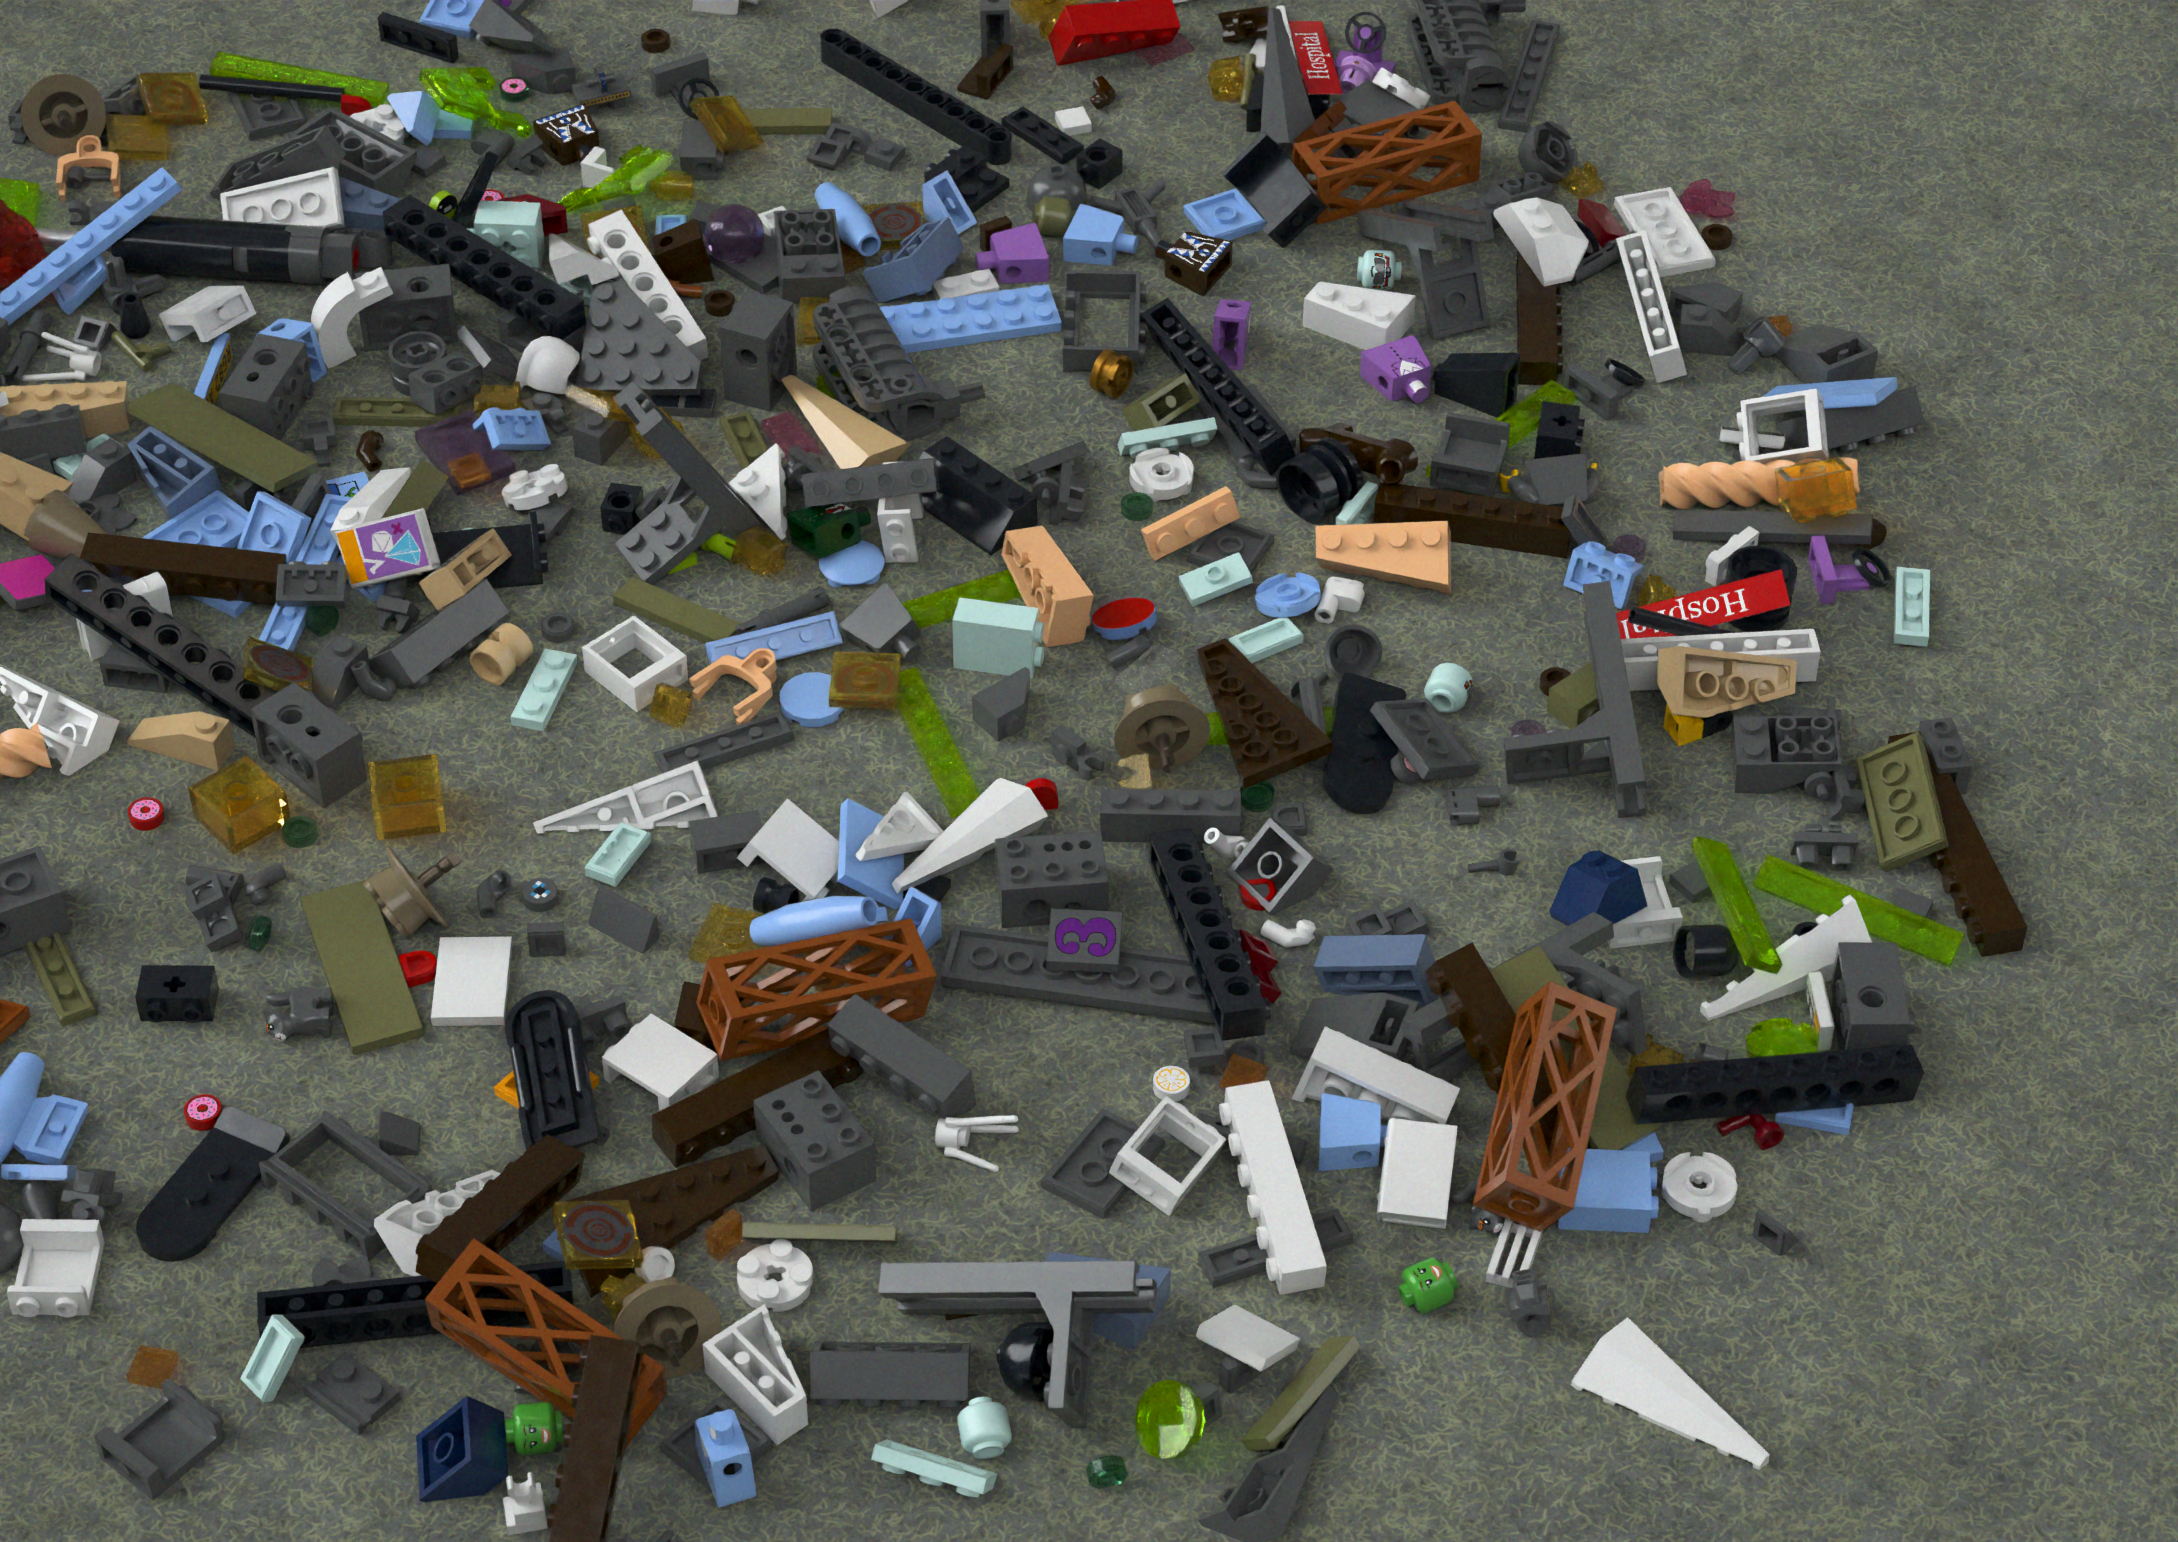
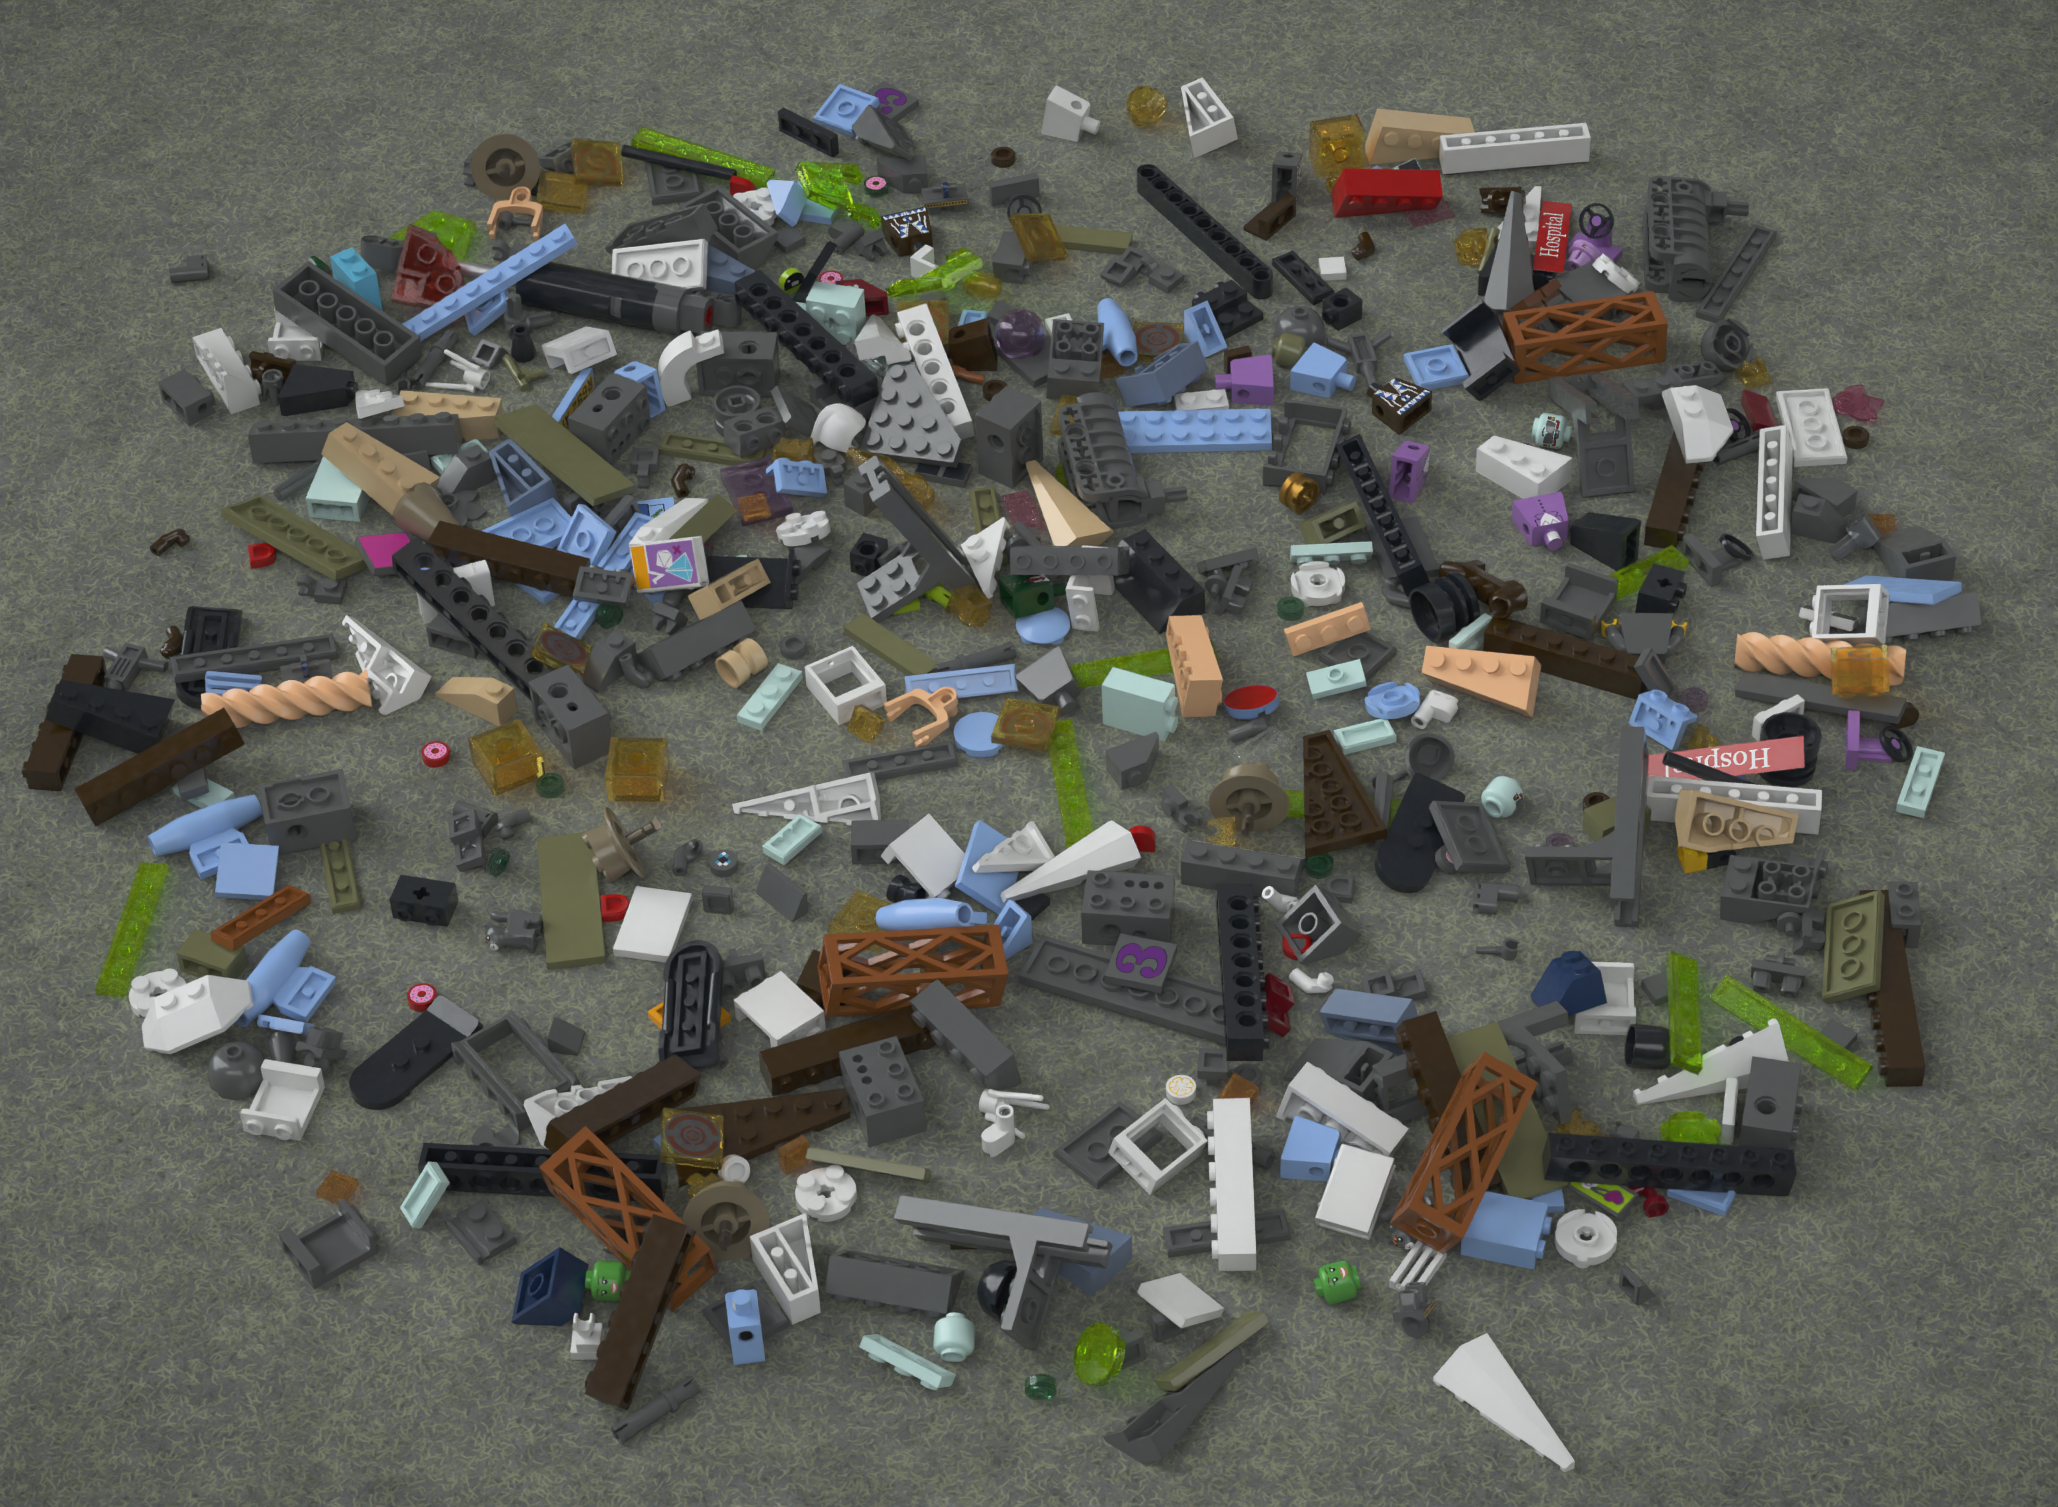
camera: 15 degrees right, 0 degrees up
(972, 1169) = (1001, 1133): none -> white piece
(1715, 1134) = (1611, 1198): none -> slope

